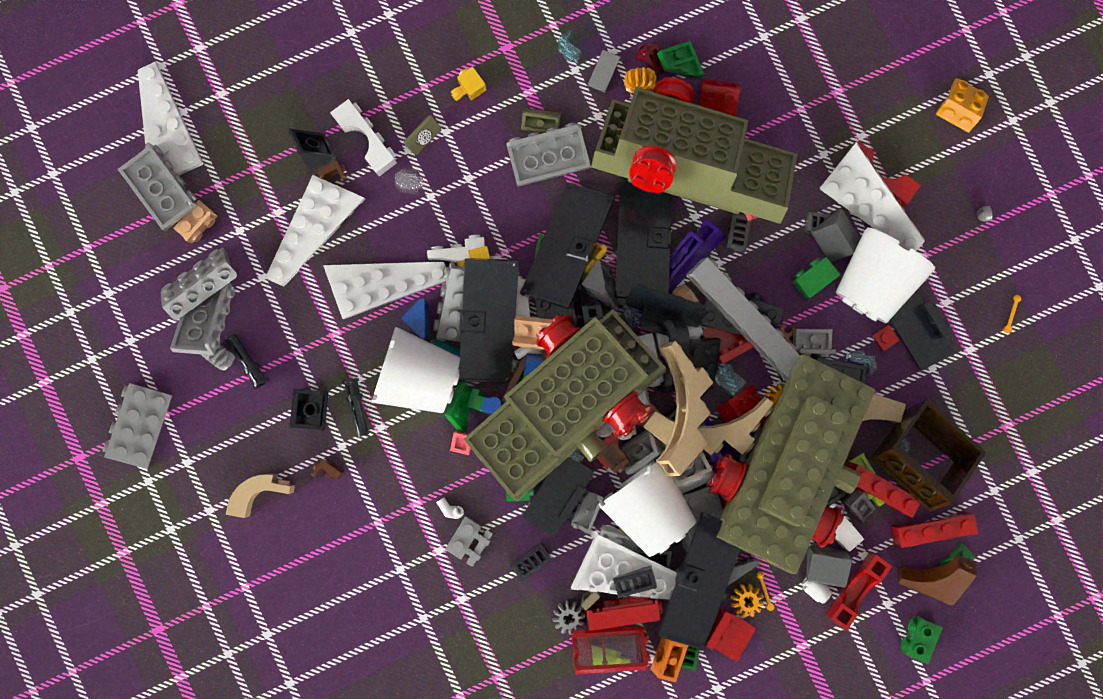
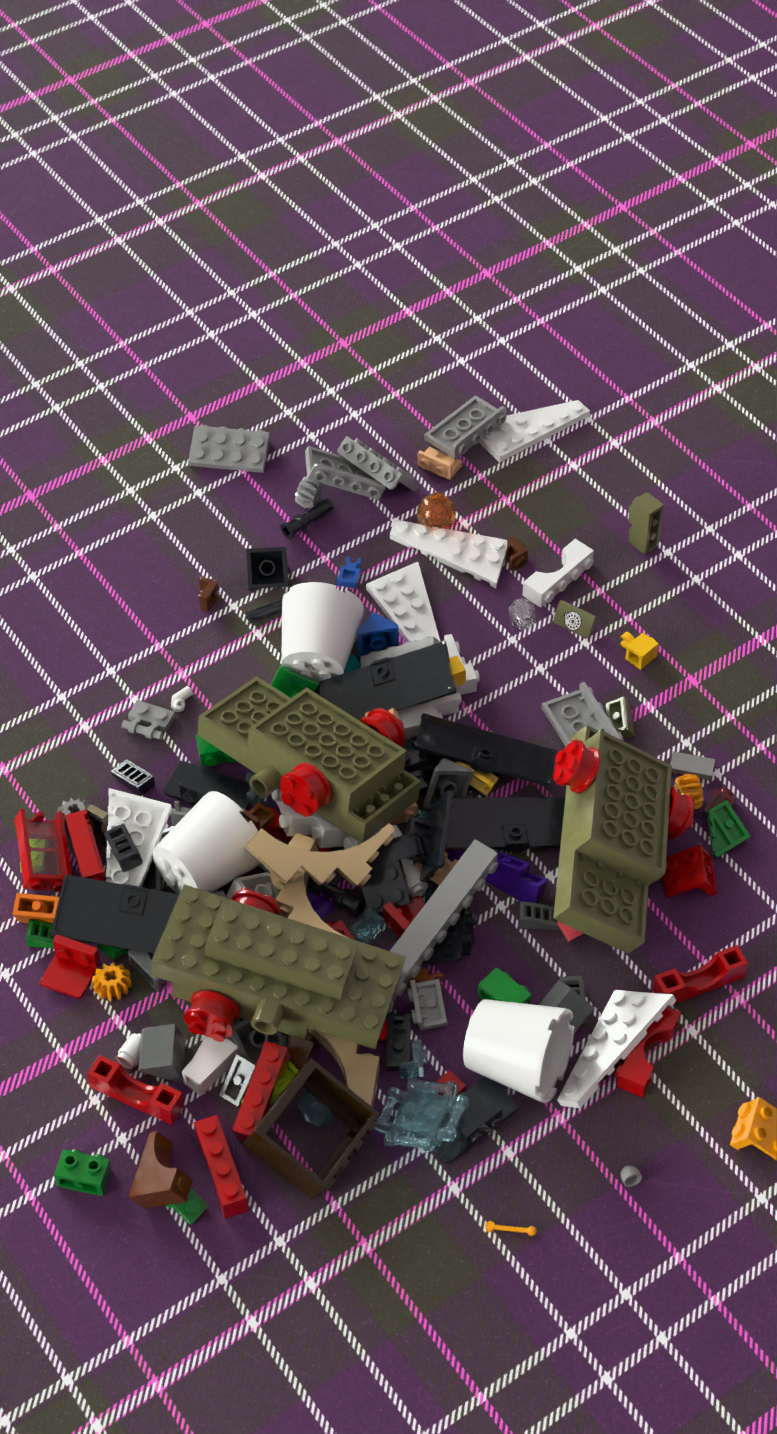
camera: 80 degrees right, 35 degrees down
(244, 495) = (177, 536): tan arch -> none
(267, 237) = (436, 510): none -> clear orange cylinder
(312, 148) = (534, 528): black slope -> none
(327, 43) = (646, 521): none -> olive piece
(328, 332) = (349, 574): none -> blue plate
(569, 51) = (708, 723): clear light blue bracket -> none
(769, 605) = (106, 1012): light orange hinge -> none
(820, 103) = (721, 970): none -> red arch
(920, 364) = (423, 1115): none -> clear light blue brick

